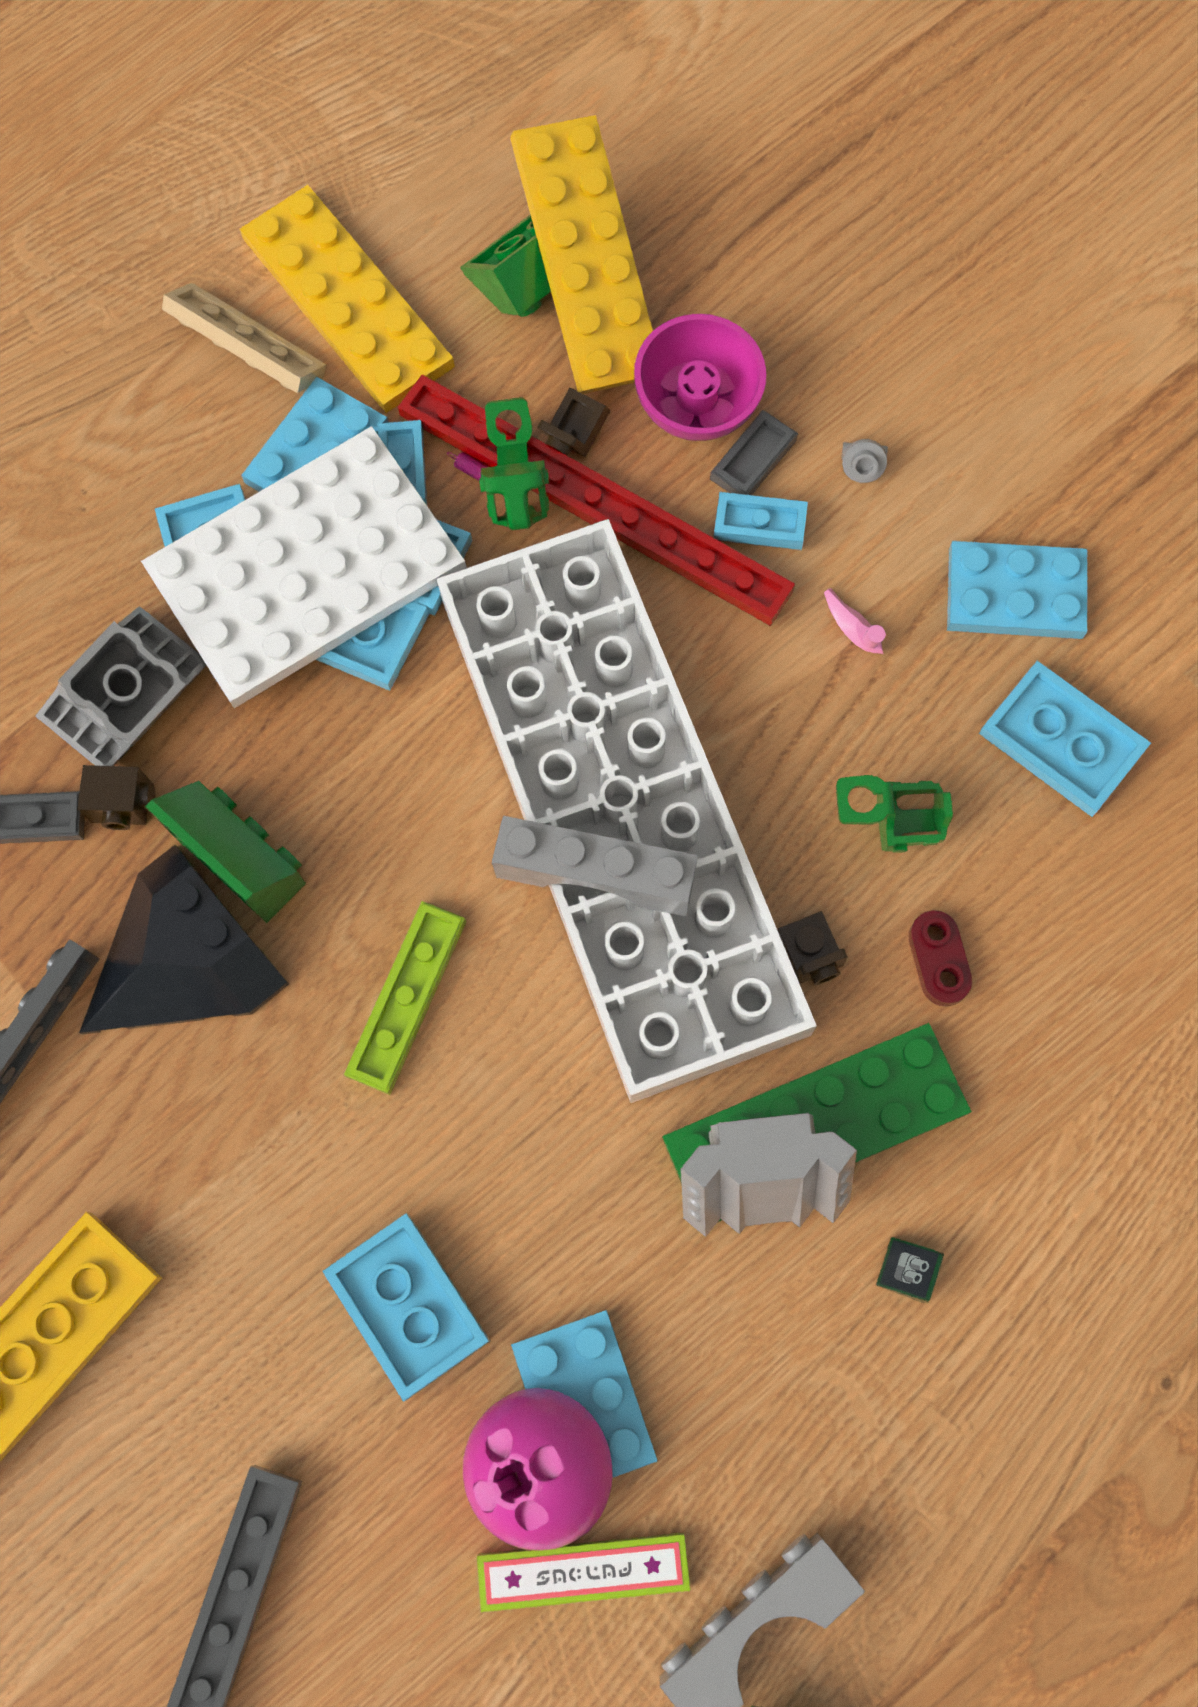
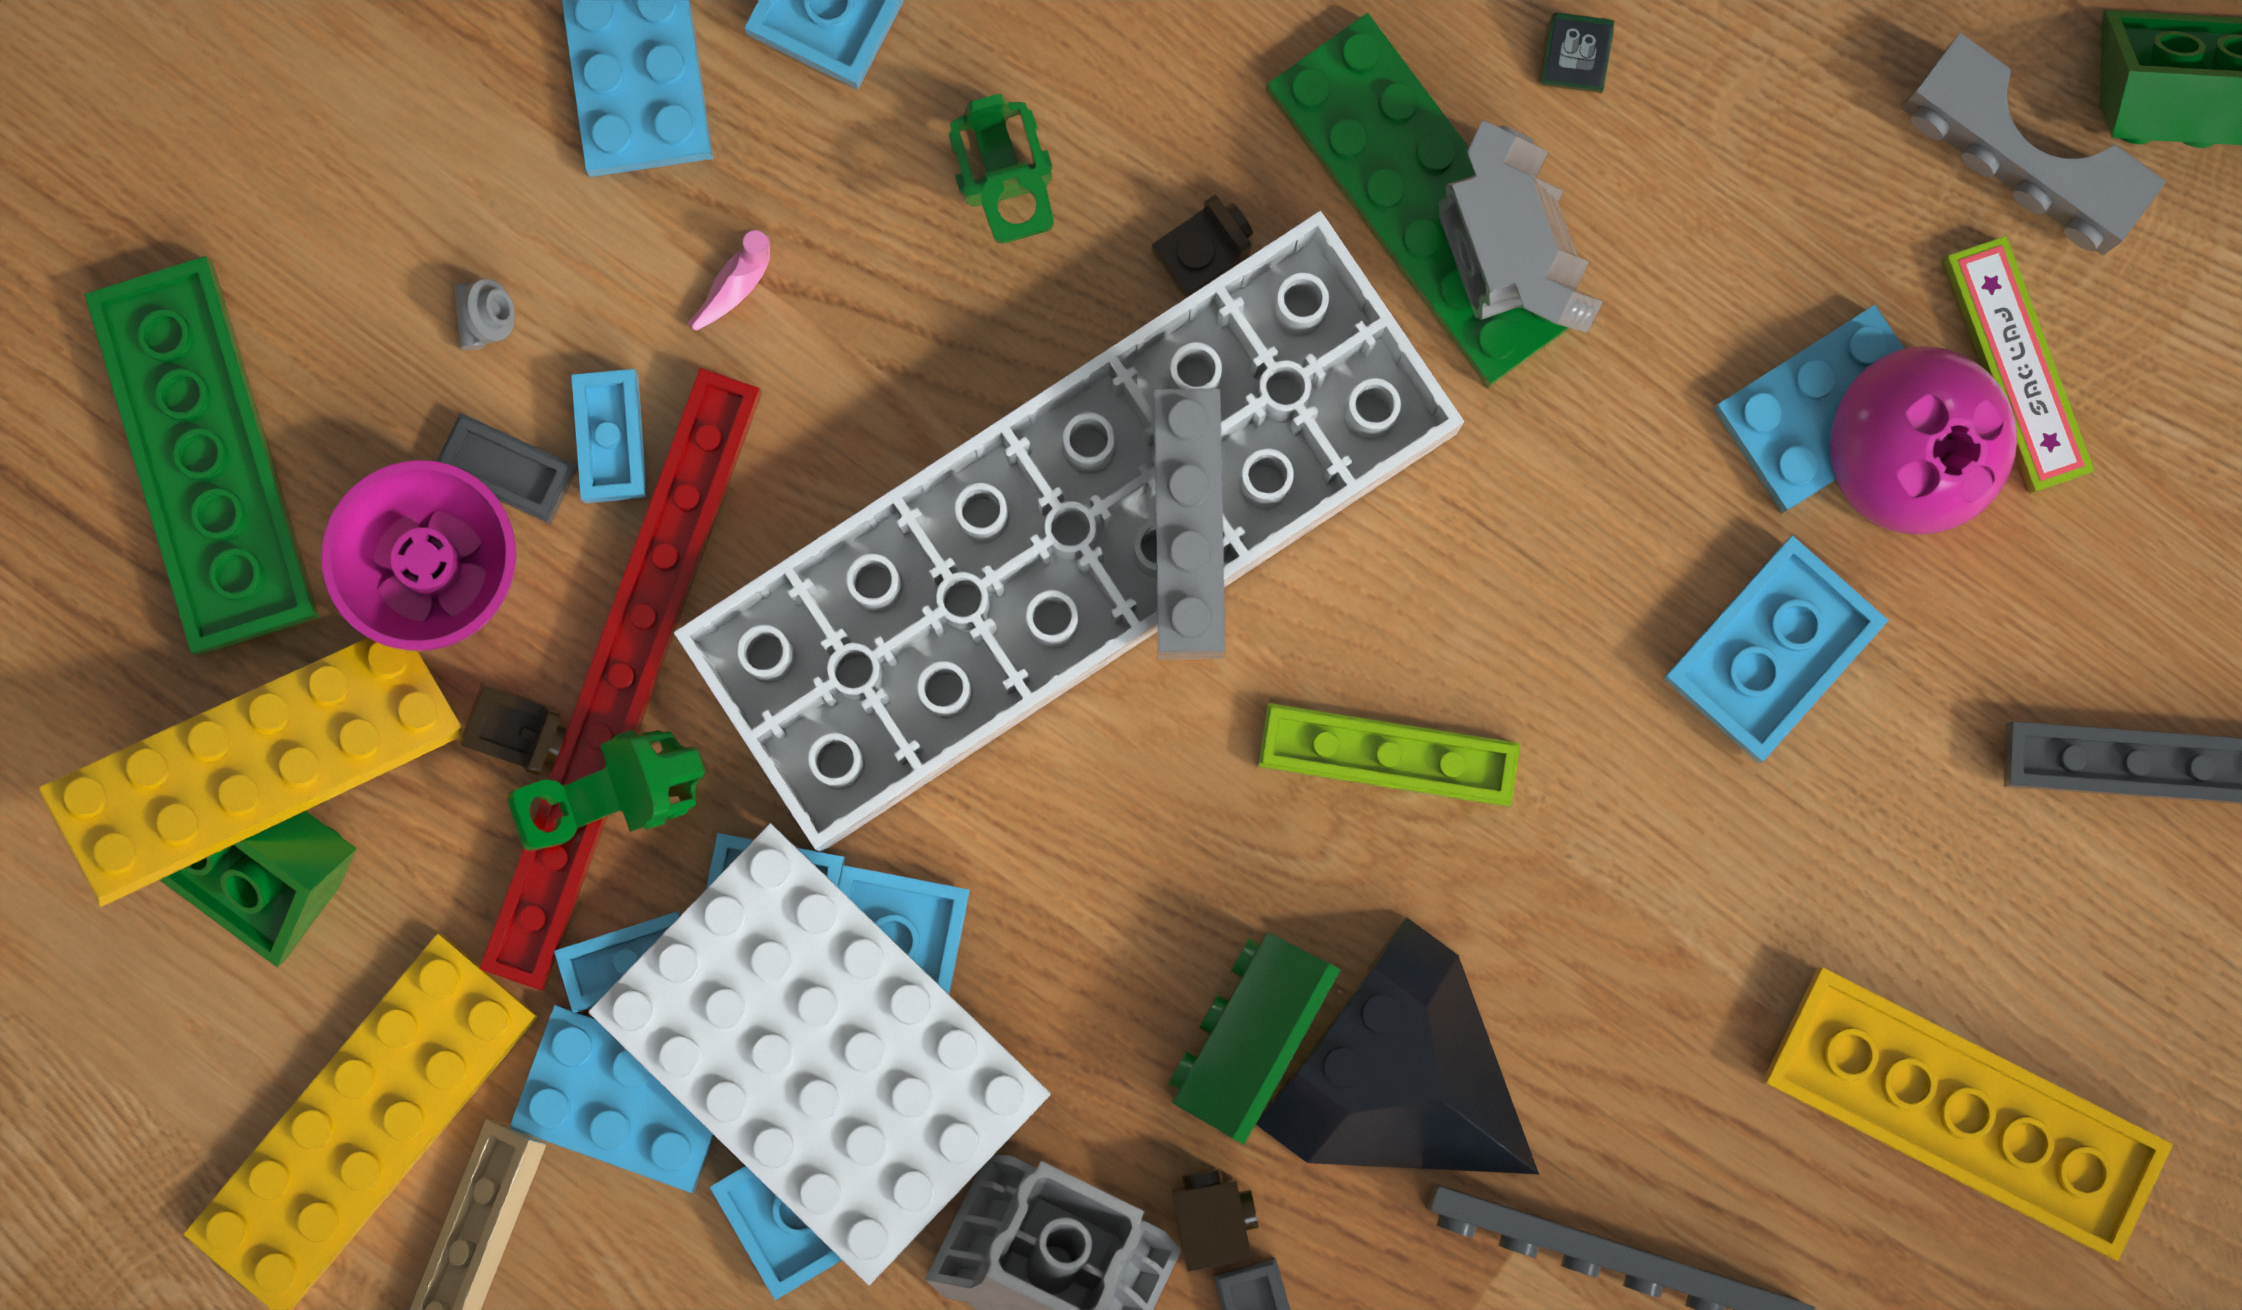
camera: 110 degrees left, 10 degrees up
(468, 465) = (607, 855): dark pink piece -> none
(806, 274) = (201, 456): none -> green plate
(940, 956) = (1180, 89): dark red plate -> none

